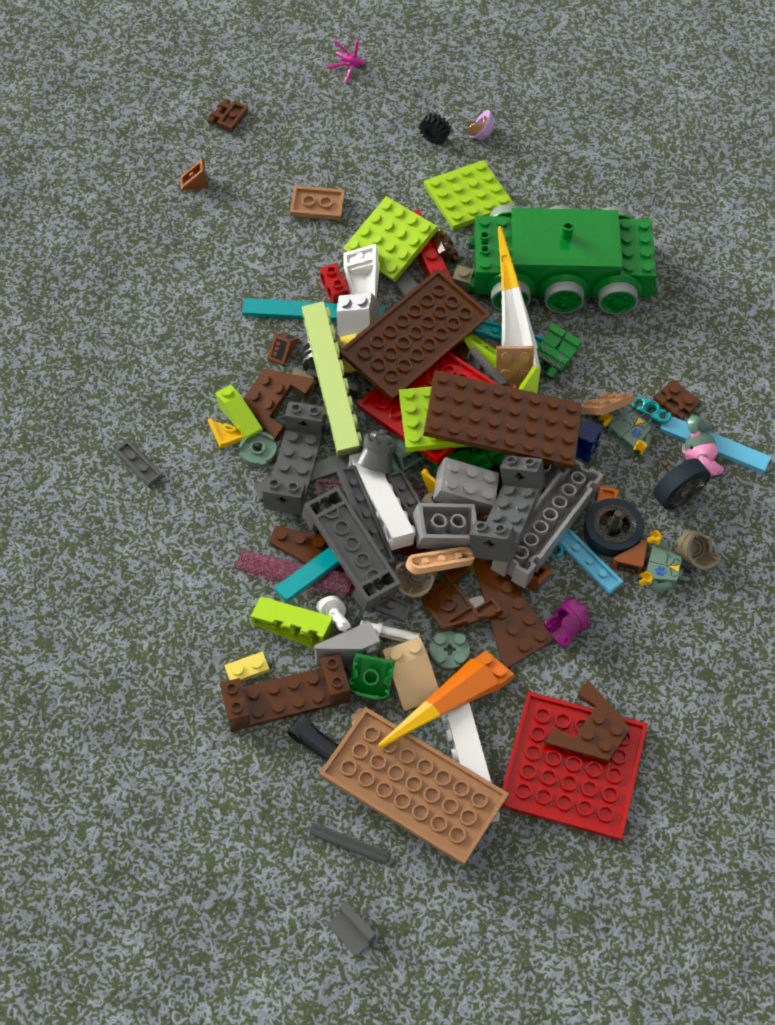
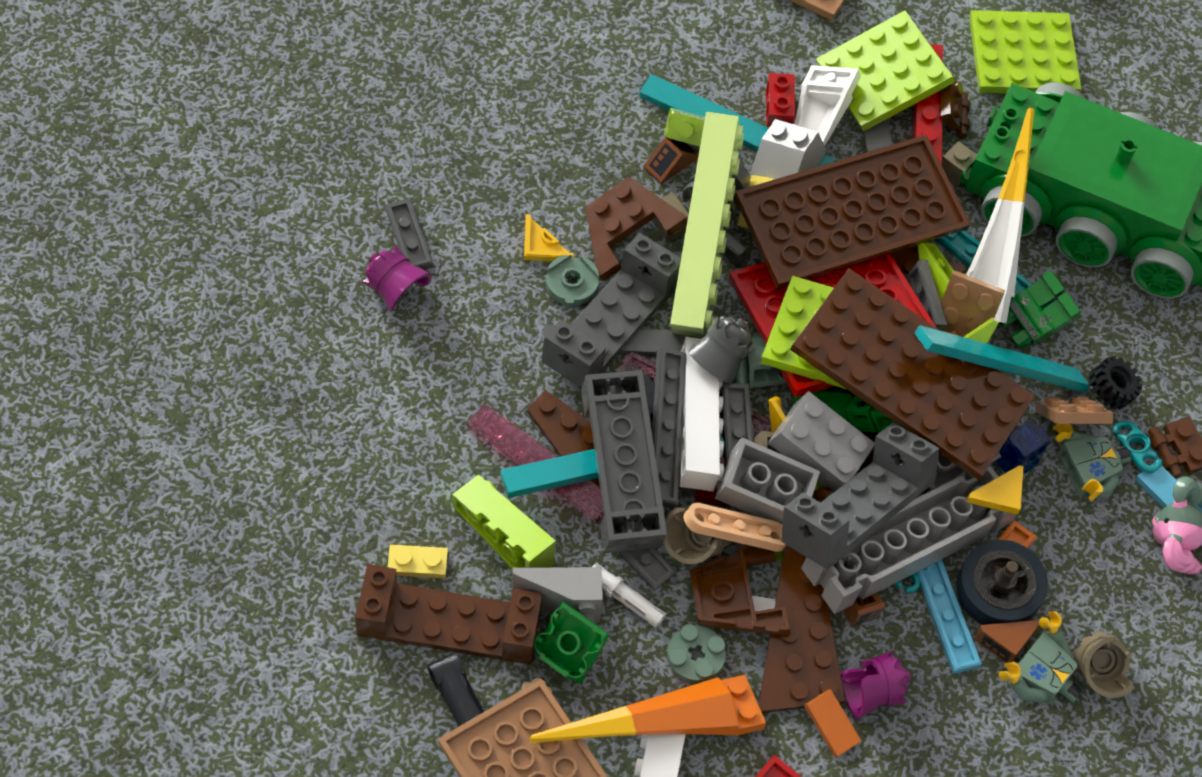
camera: 20 degrees right, 0 degrees up
(143, 493) = (392, 275): none -> magenta hat
(237, 411) = (568, 220): lime slope -> none
(285, 322) = (684, 127): none -> lime torso
(334, 607) = (567, 532): white piece -> none
(412, 673) = (628, 661): tan slope -> none
(550, 389) = (1001, 359): none -> teal tile
(553, 656) = (832, 723): none -> orange tile
(589, 471) = (1001, 493): none -> yellow tile
(620, 376) = (1107, 390): none -> black tyre
(681, 483) = (1126, 563): black wheel -> none

